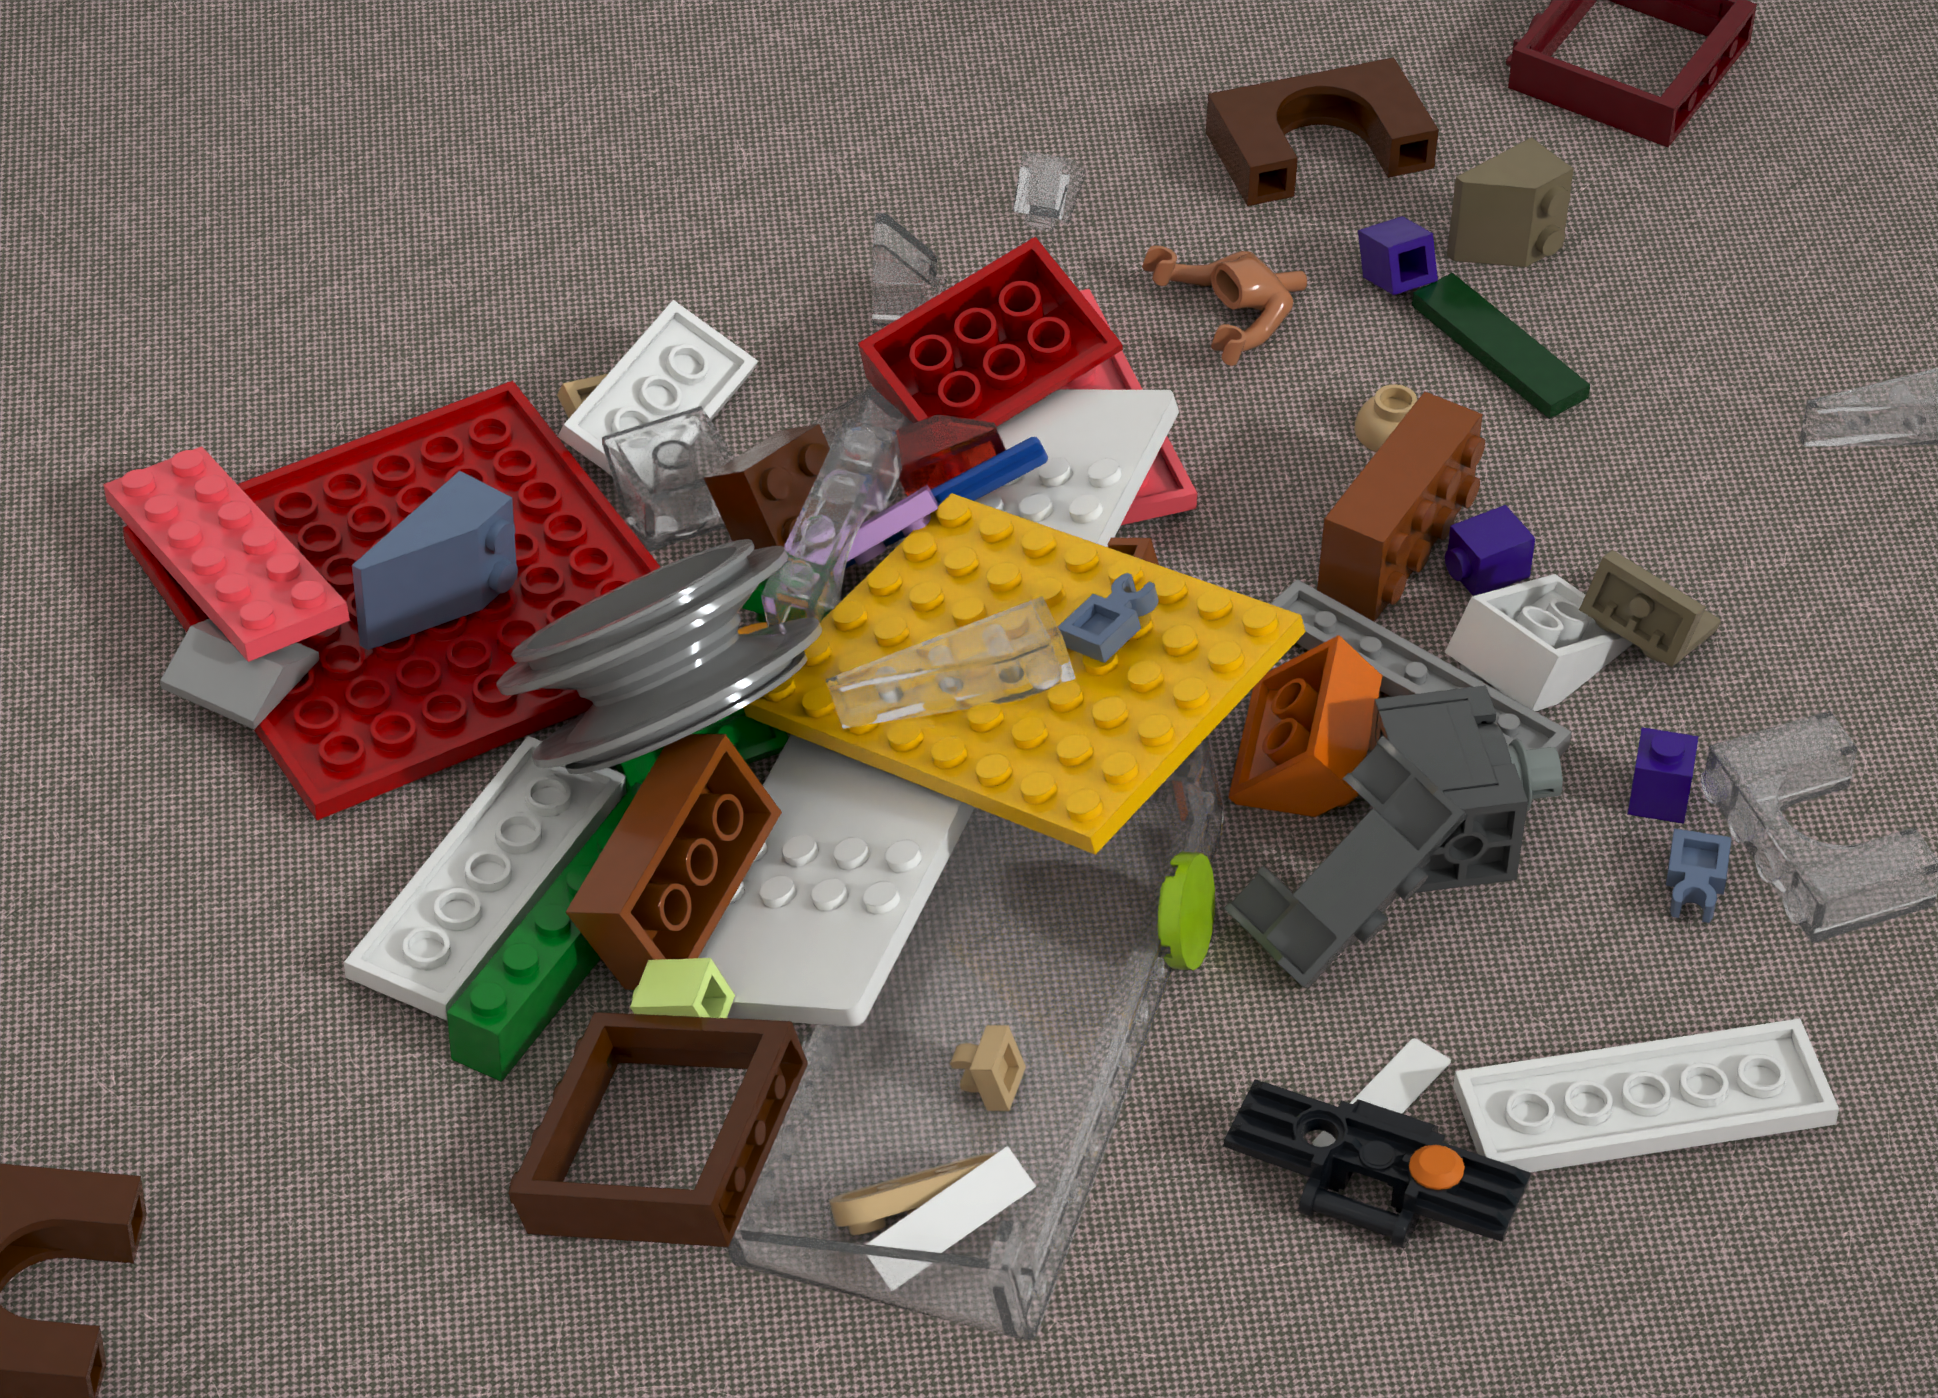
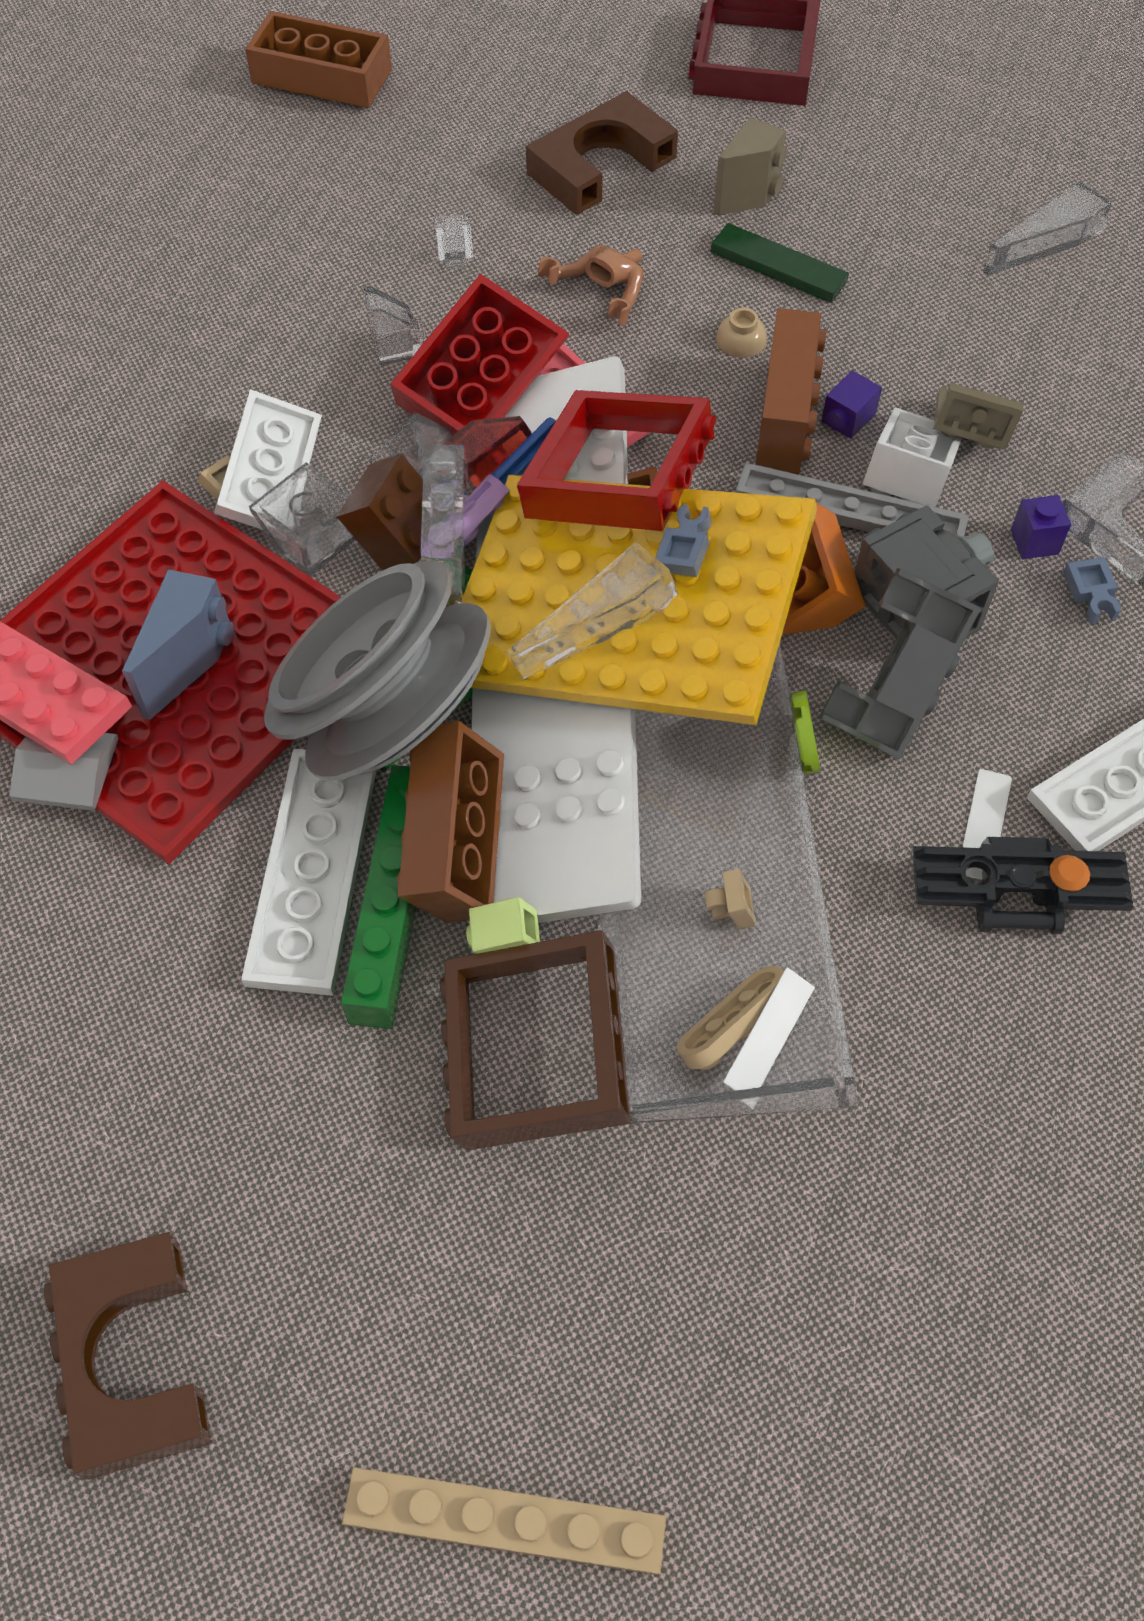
camera: 20 degrees left, 15 degrees up
(980, 507) = (552, 499): none -> red window
(1397, 255) = (693, 220): dark purple brick -> none

